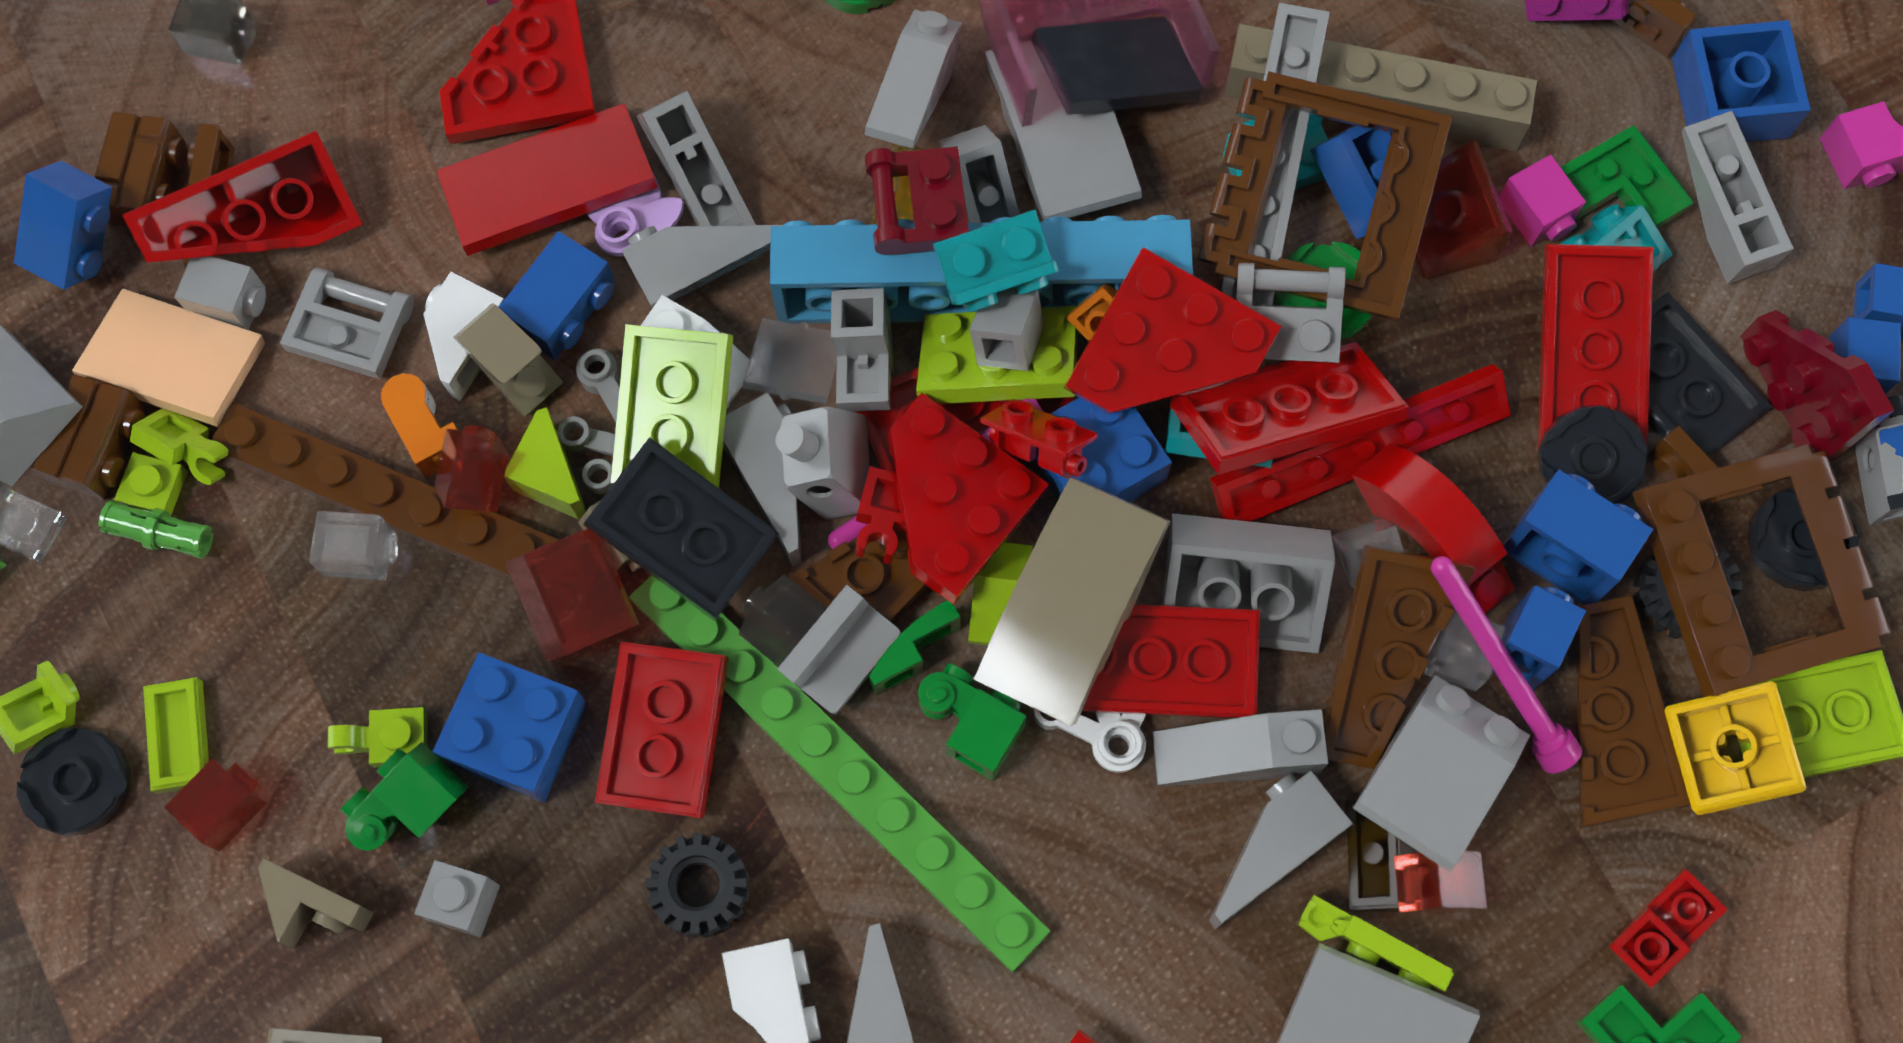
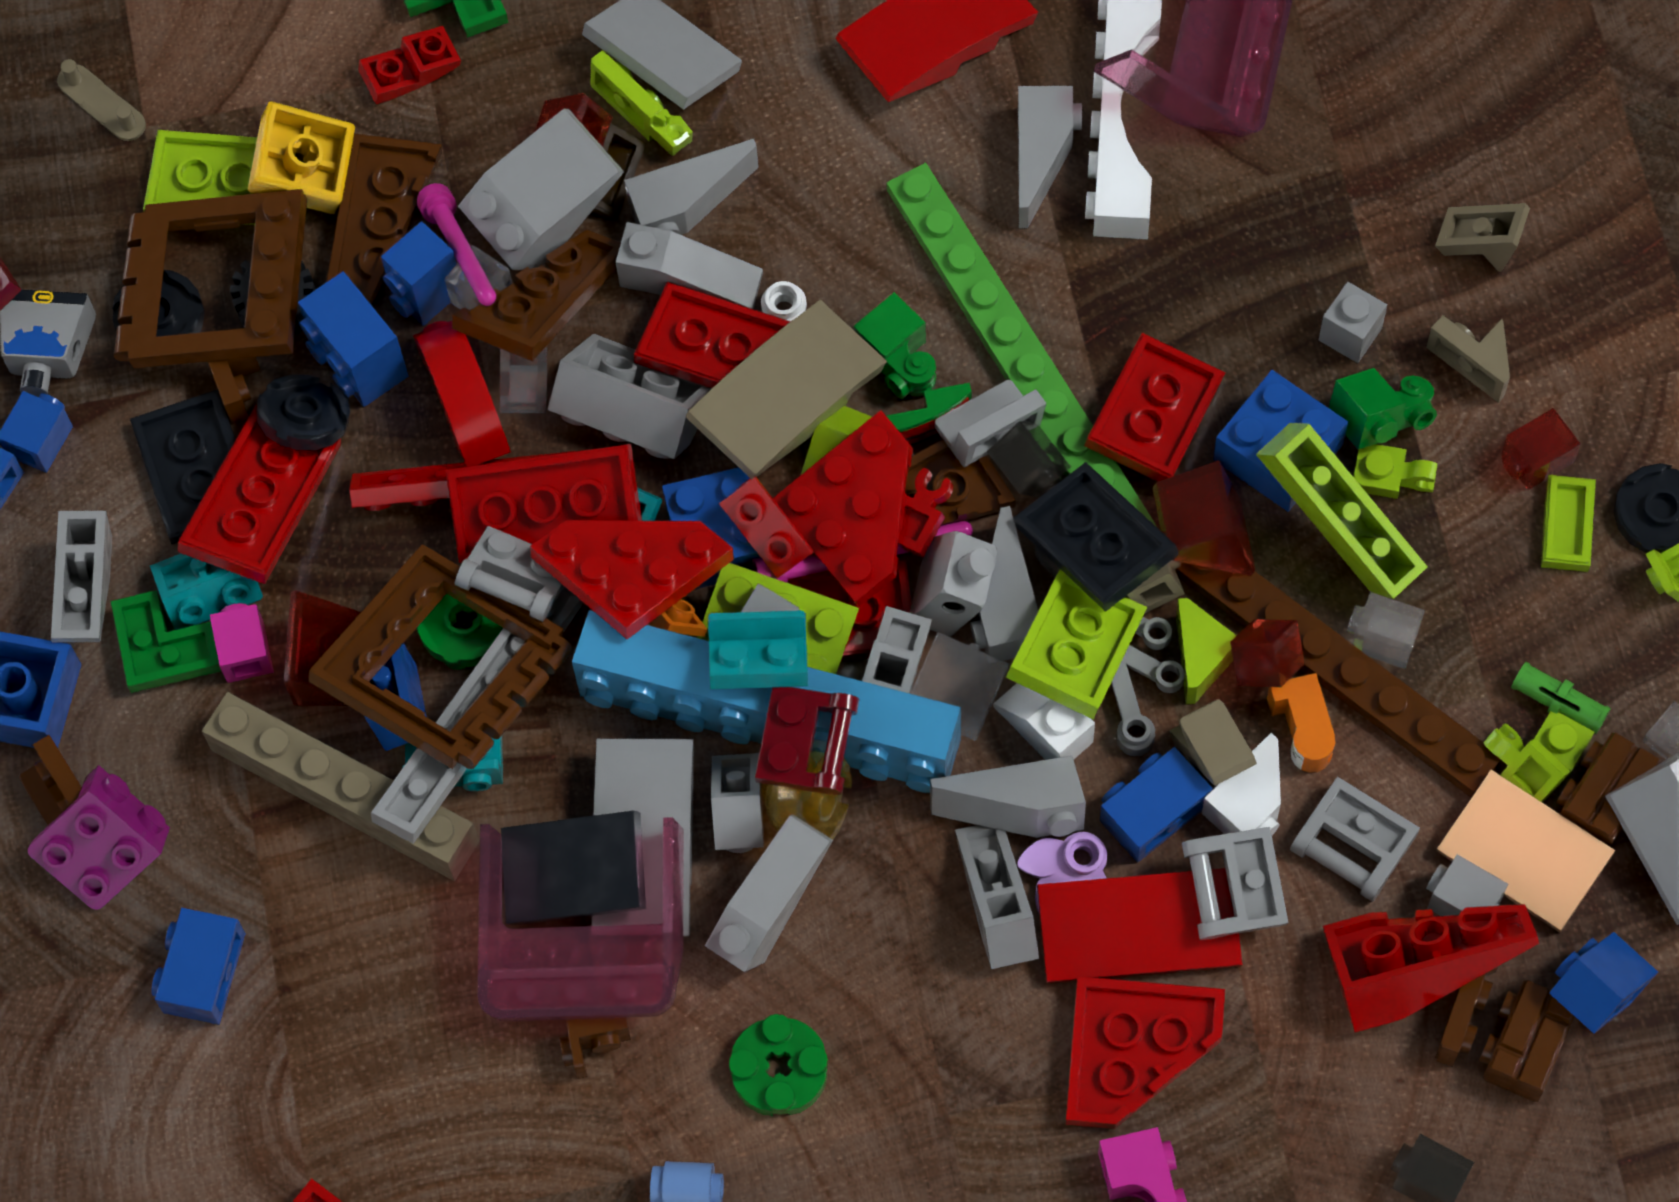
camera: 160 degrees left, 5 degrees down
(417, 631) = (1341, 510): none -> lime brick
(437, 229) = (1251, 881): none -> light grey plate
(674, 862) = (1161, 263): black tyre -> none
(1821, 394) = (101, 407): dark red plate -> none

